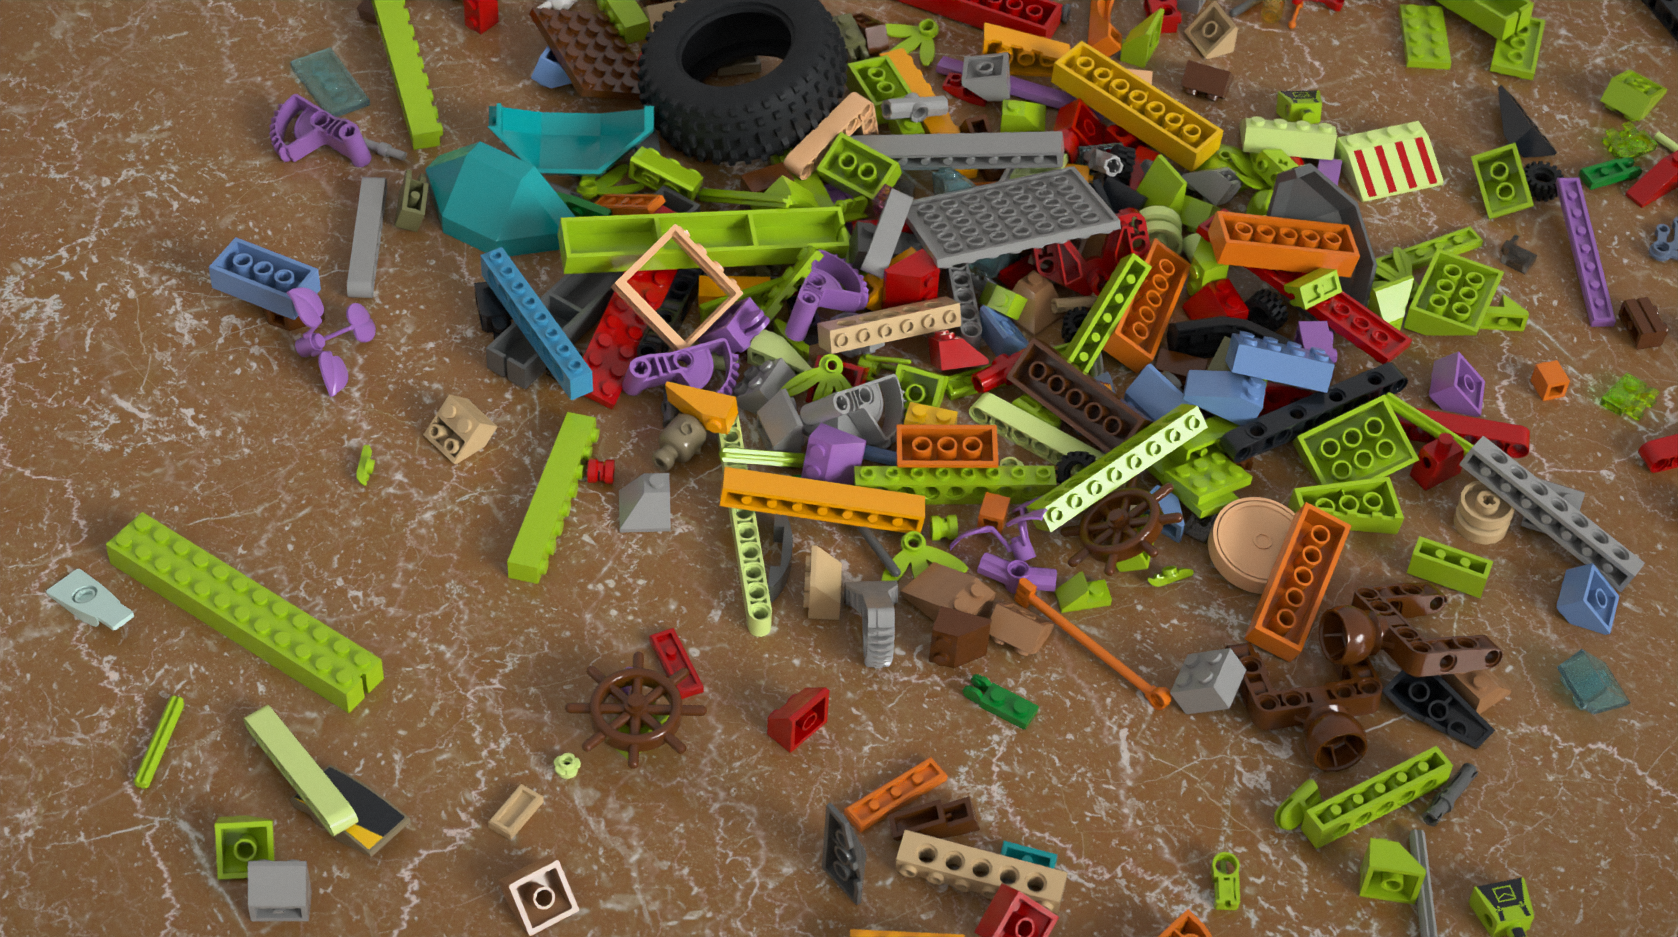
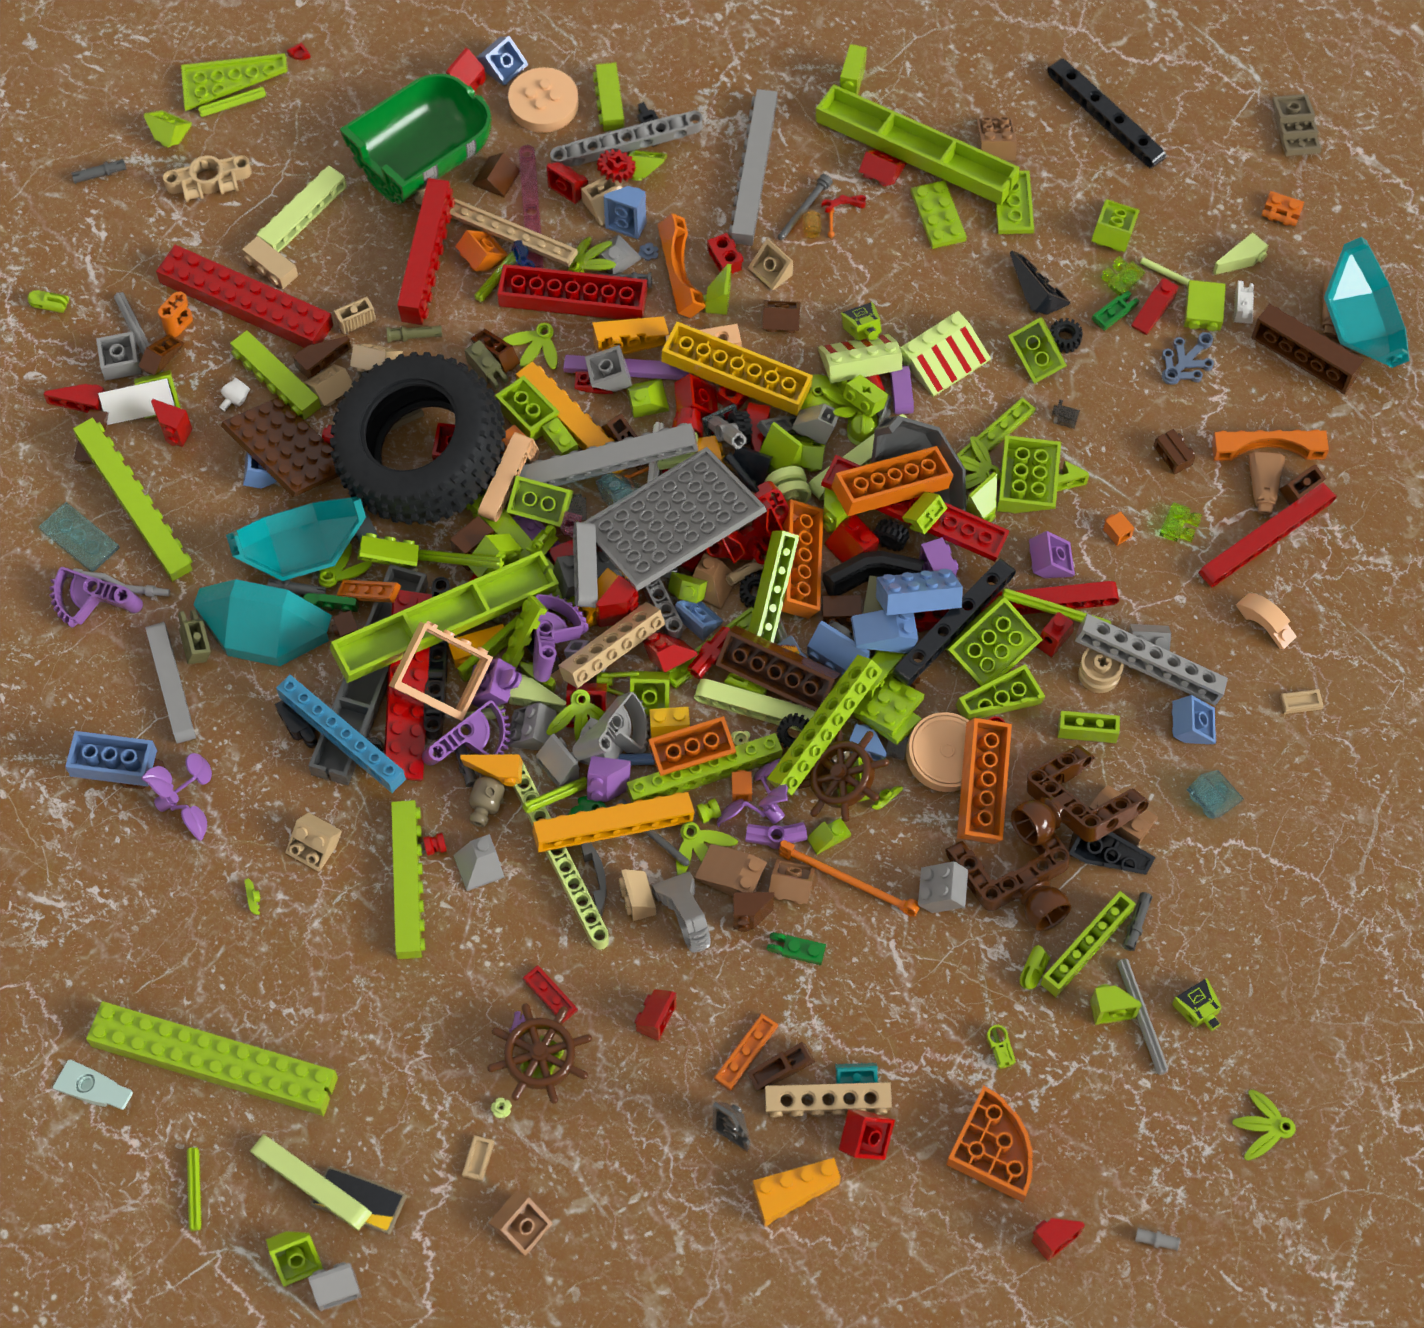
camera: 15 degrees left, 15 degrees up
(914, 107) = (564, 426): light grey piece -> none
(1585, 252) = (1115, 396): medium lavender tile -> none

